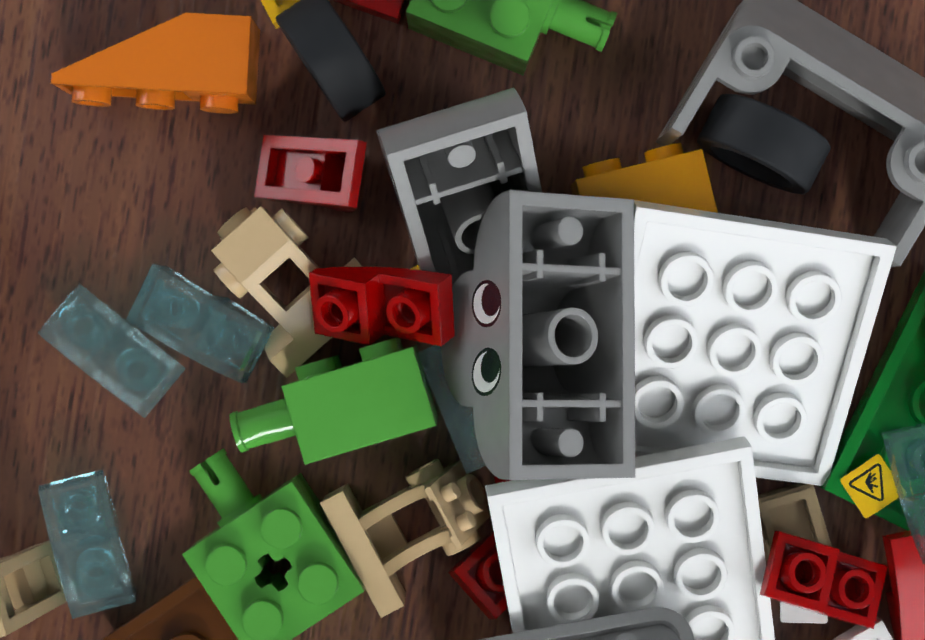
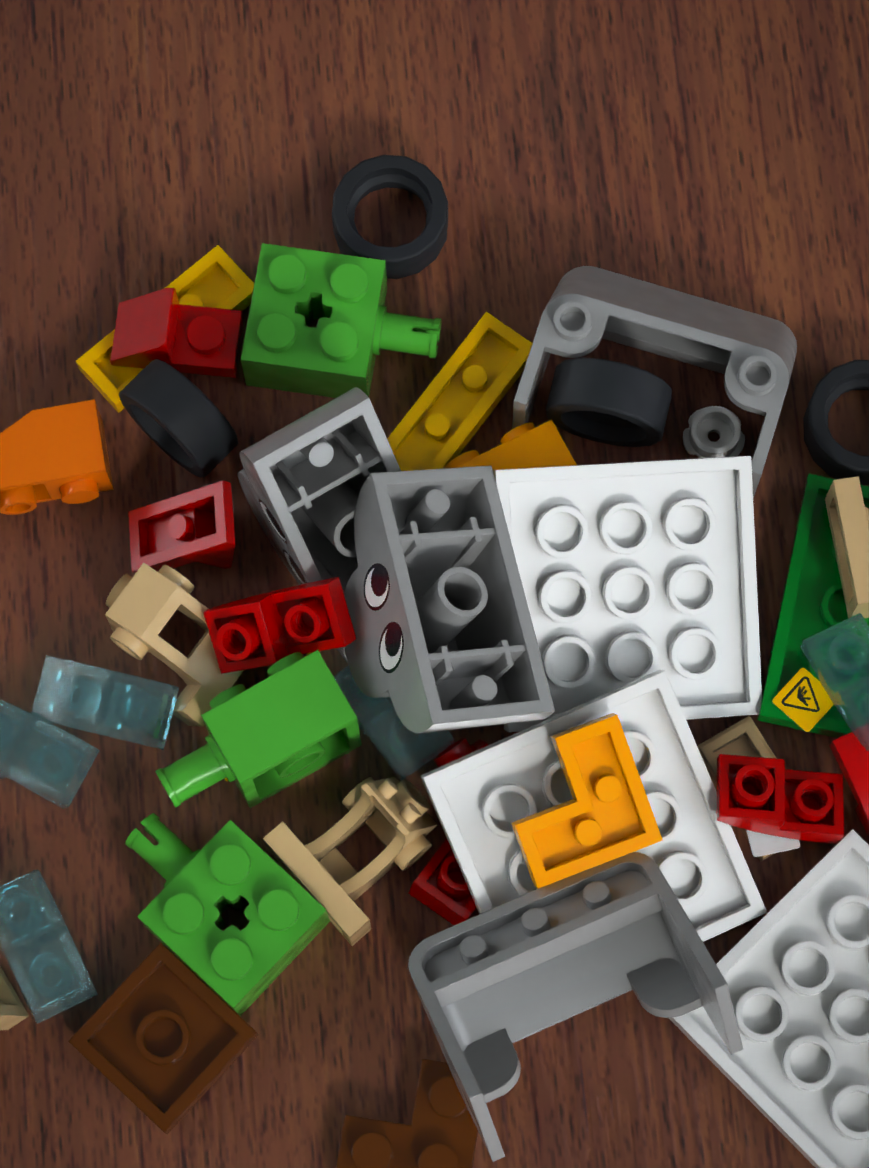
camera: 15 degrees left, 15 degrees down
(612, 100) = (460, 396): none -> yellow plate
(653, 576) = (607, 808): none -> light orange plate
(869, 192) = (716, 420): none -> white plate

